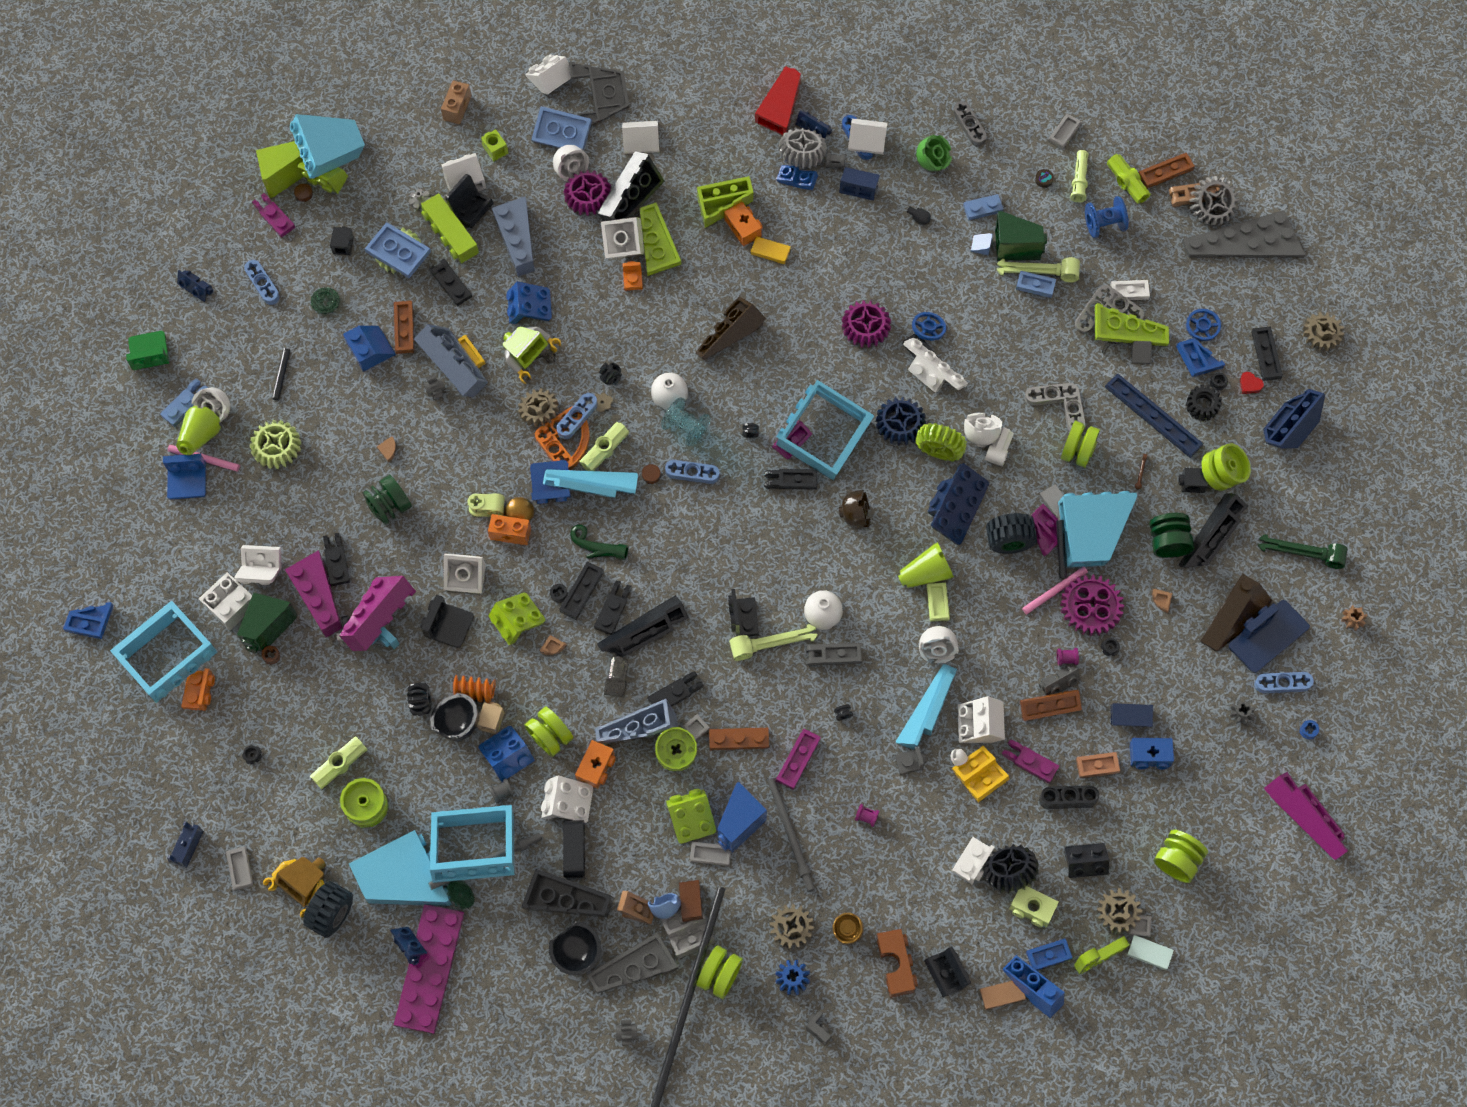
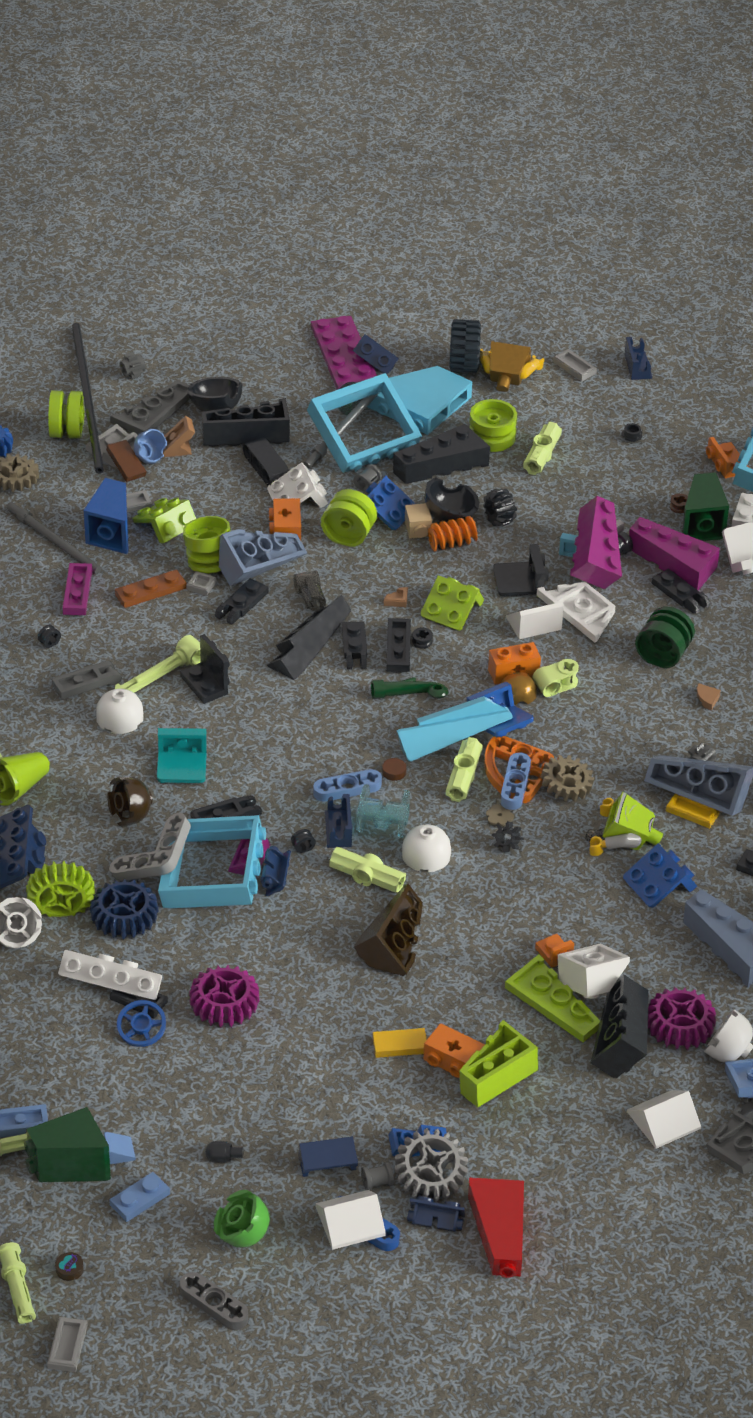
camera: 150 degrees right, 25 degrees down
(422, 569) = (582, 607): none -> white wing
(423, 788) = (441, 455): none -> black wedge
(717, 436) = (338, 823): none -> dark blue hinge
(720, 388) = (367, 869): none -> yellowish green piece
(782, 410) = (275, 870): none -> dark blue hinge
(799, 540) = (182, 755): none -> teal bracket
(859, 440) = (161, 860): none -> light grey beam

